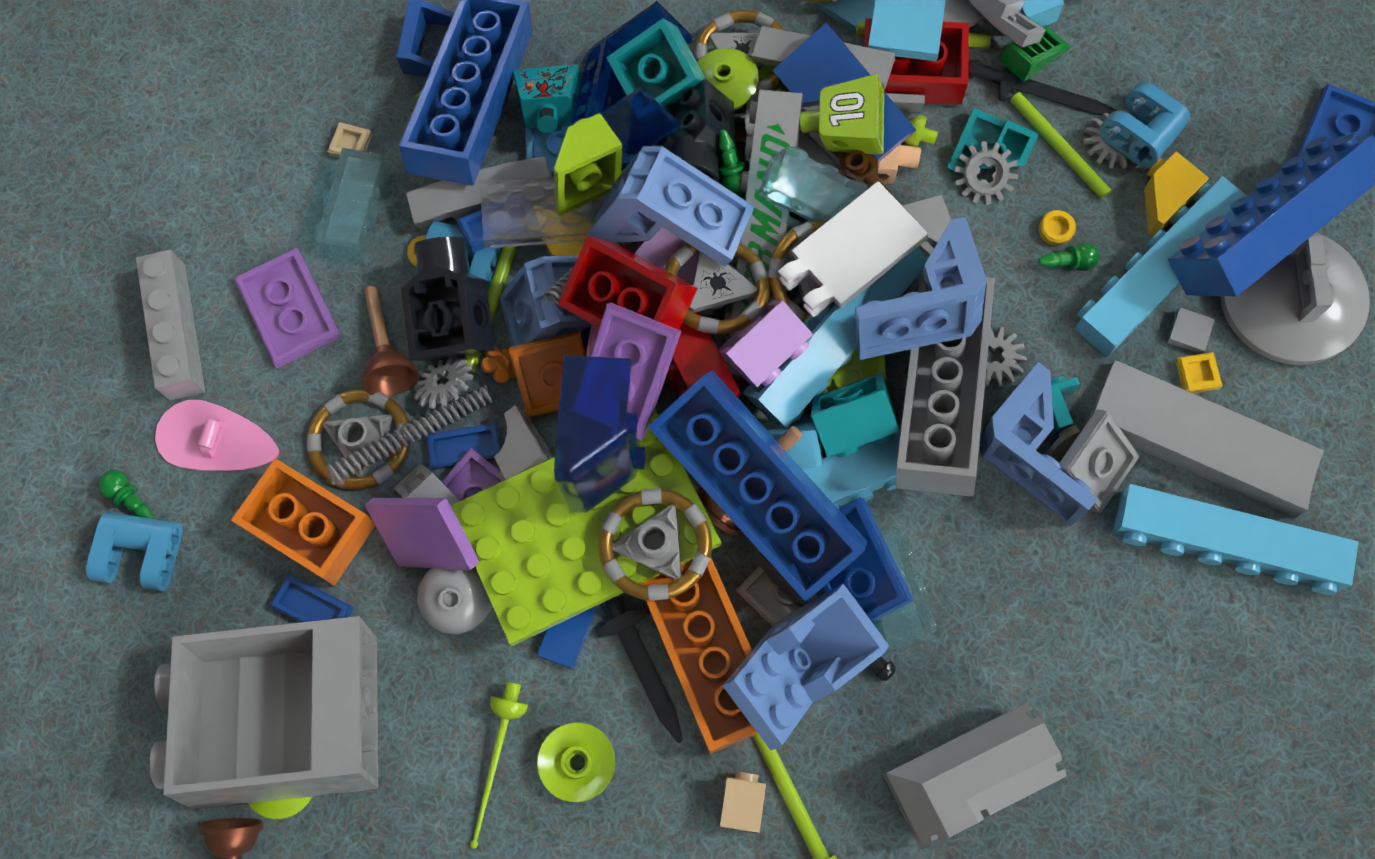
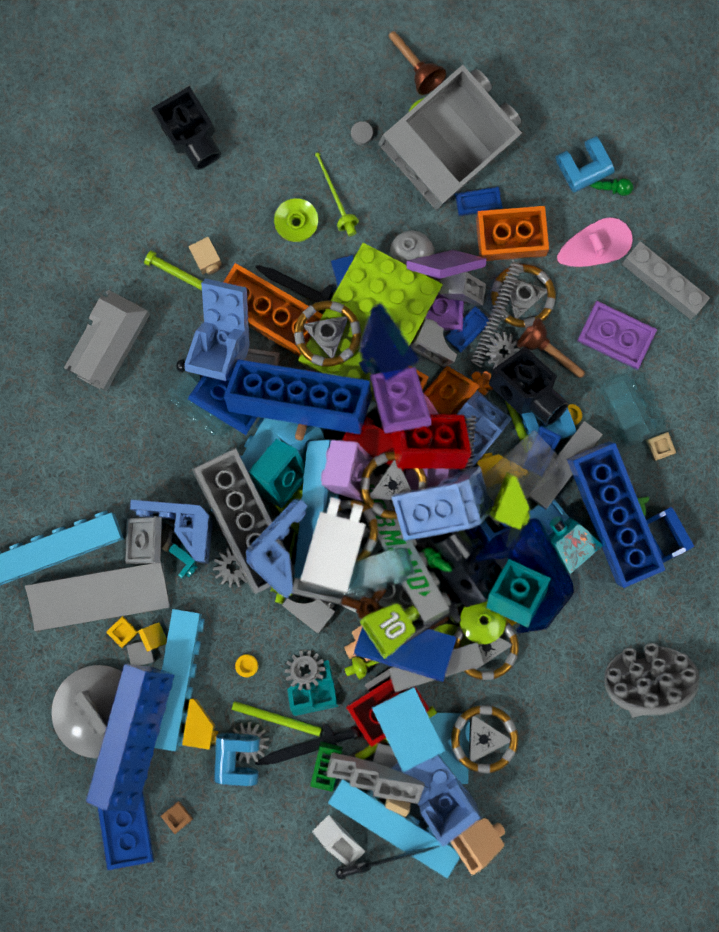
camera: 140 degrees right, 10 degrees up
(387, 827) = (361, 133): none -> light grey tile
(1081, 257) = (223, 657): green bar -> none
(1161, 336) = (153, 636): none -> yellow tile
(1263, 115) = (176, 817): none -> medium nougat tile

